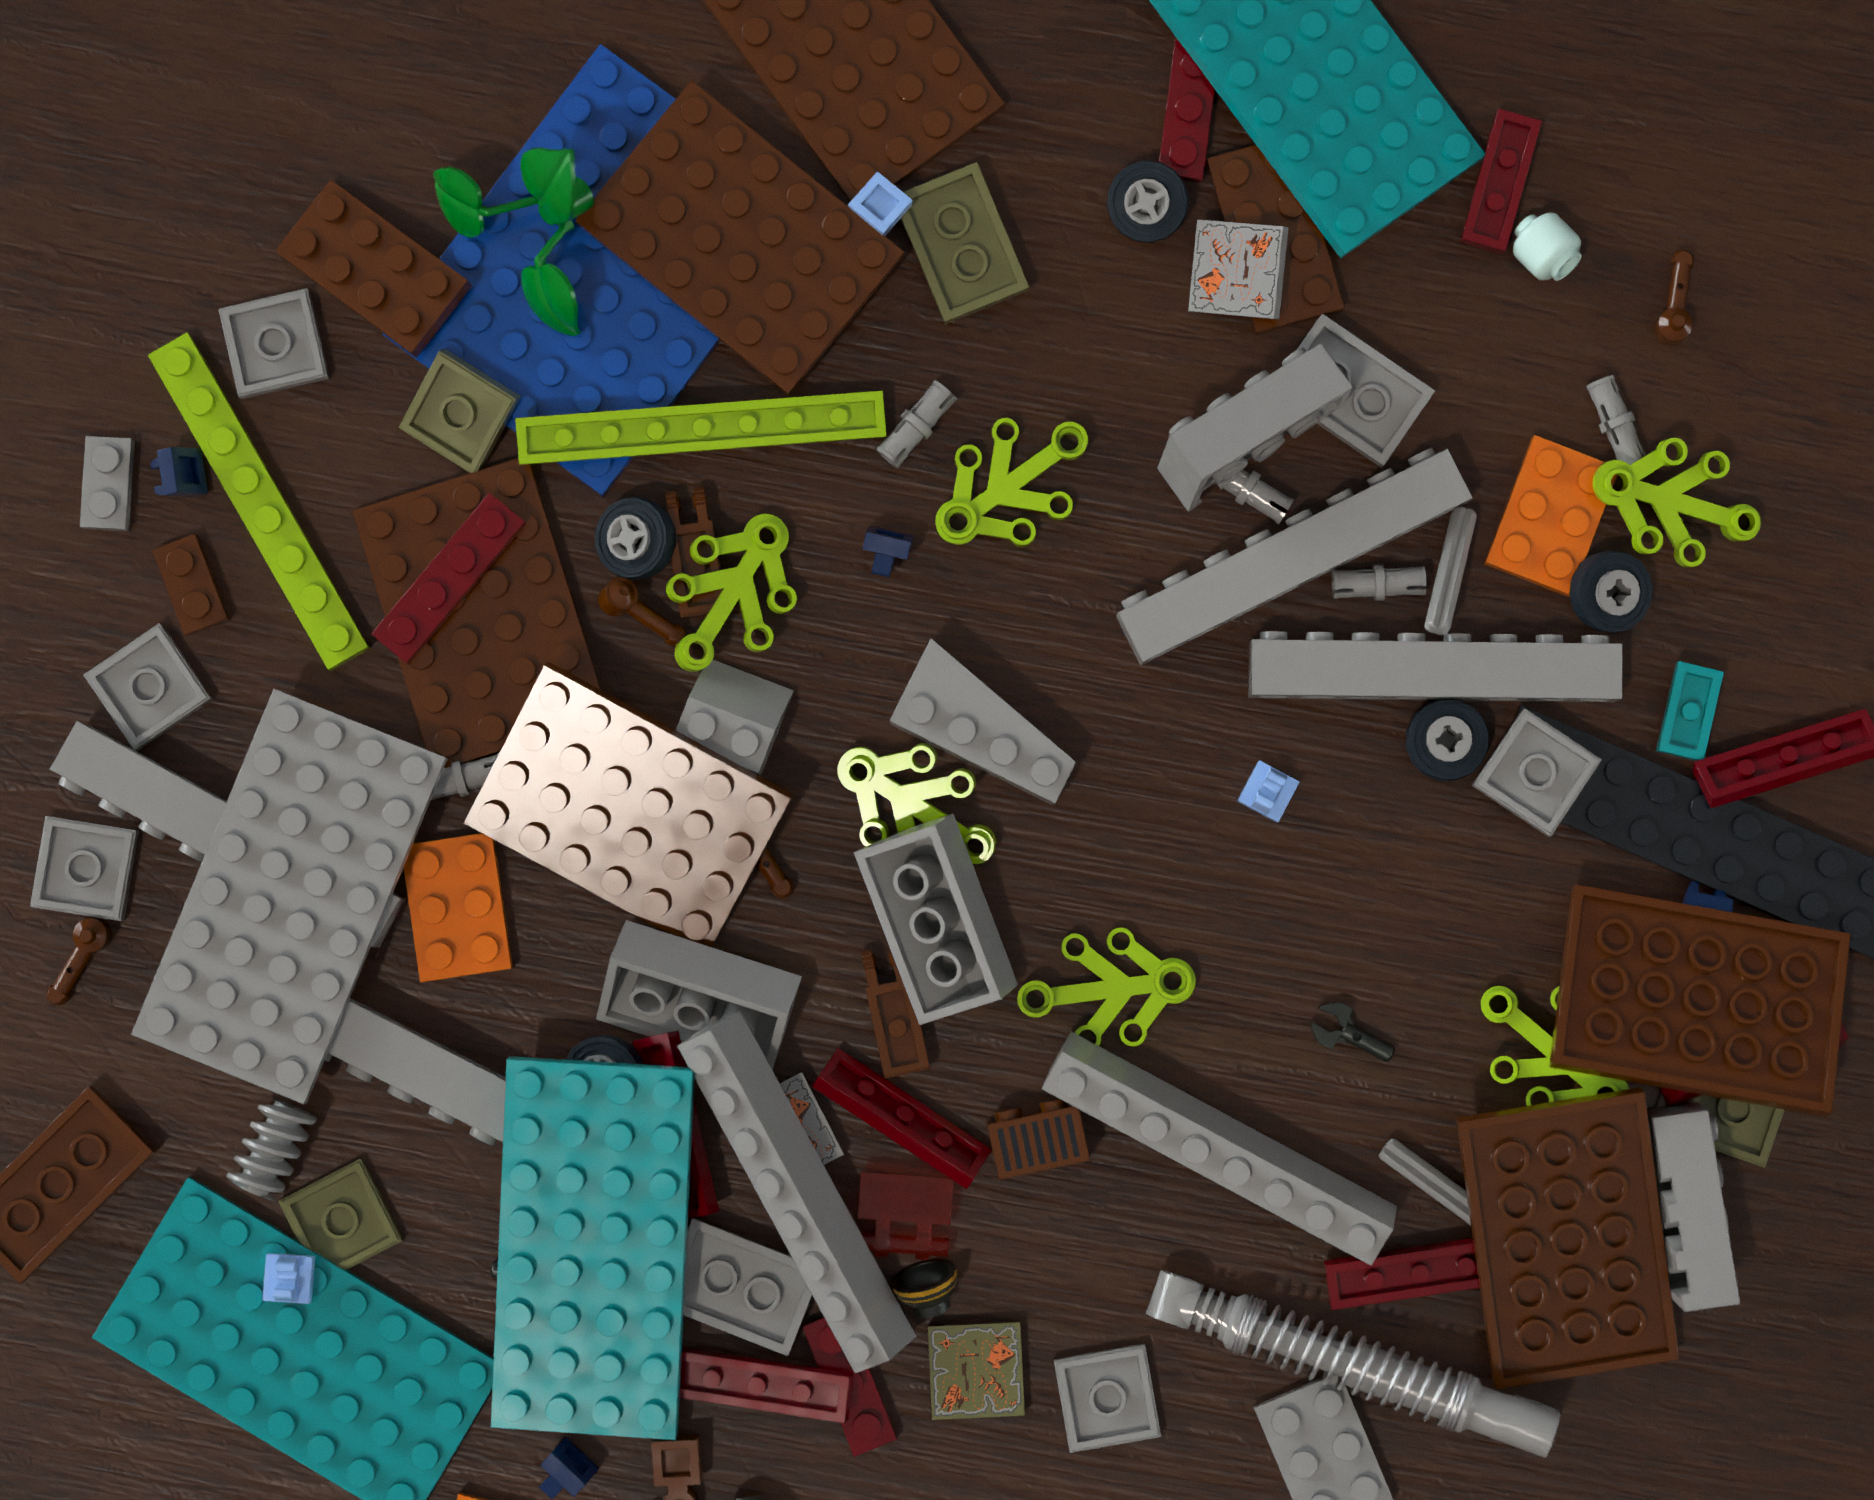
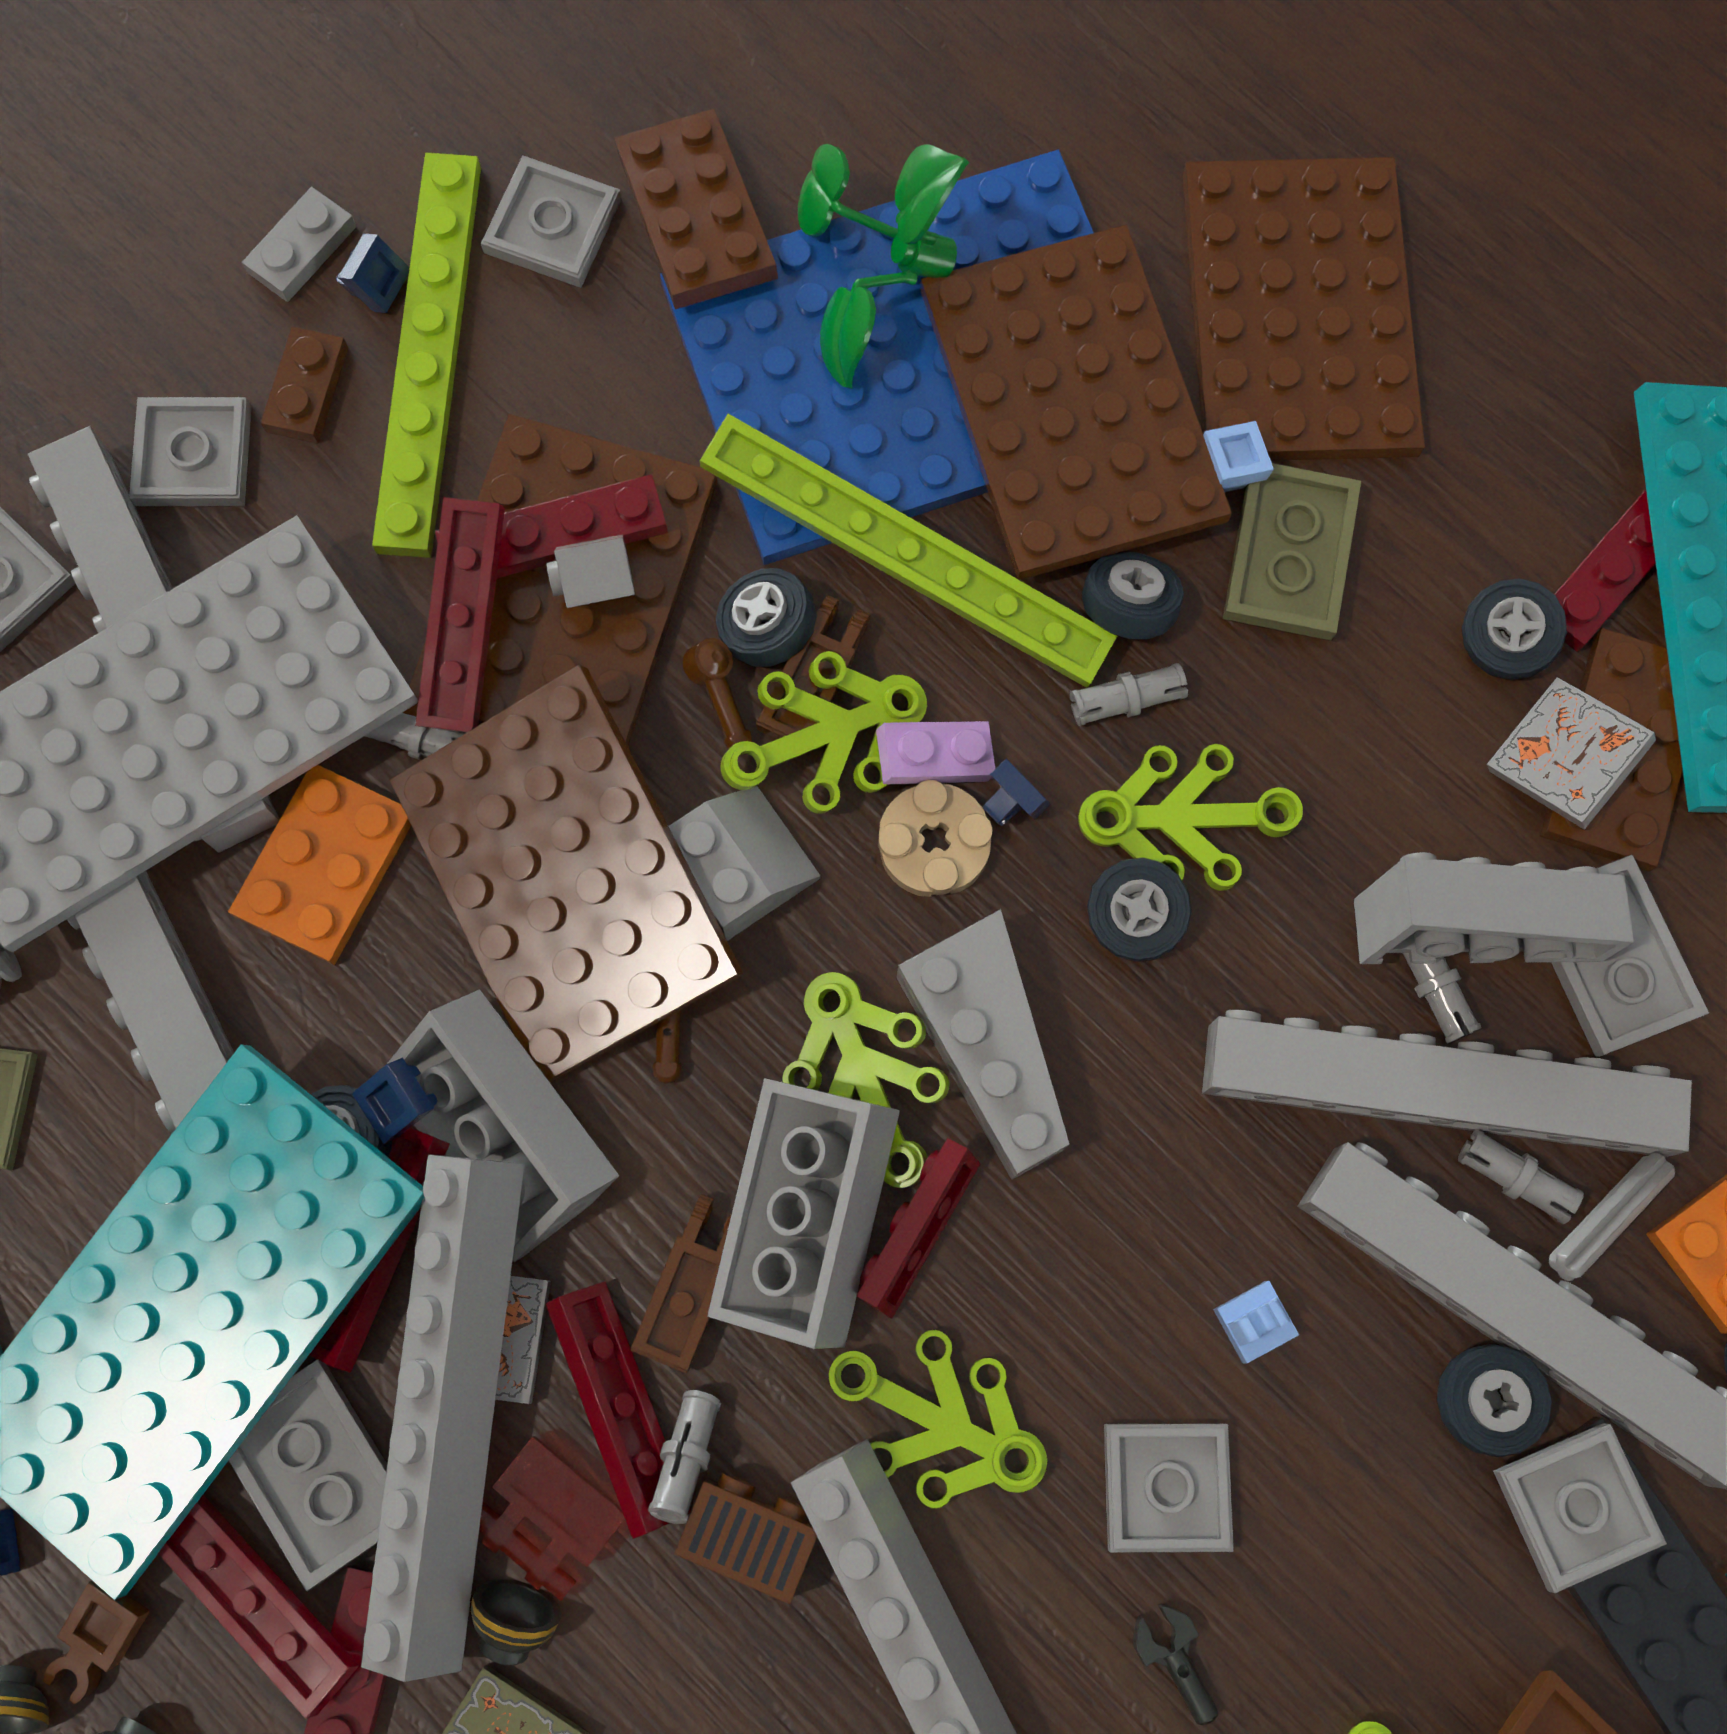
camera: 30 degrees right, 10 degrees down
(435, 682) = (460, 615): none -> dark red plate
(459, 411) = (680, 387): olive tile -> none
(501, 591) = (591, 571): none -> light grey brick
(626, 1027) = (394, 1099): none -> dark blue tile
(814, 555) = (935, 752): none -> lavender plate
(871, 370) = (1132, 595): none -> black wheel
(872, 596) = (931, 807): none -> tan plate
(964, 1118) = (684, 1457): none -> light grey pin
(1014, 878) = (917, 1227): none -> dark red plate
(1022, 587) = (1147, 891): none -> black wheel
(1277, 932) = (1168, 1488): none -> light grey tile

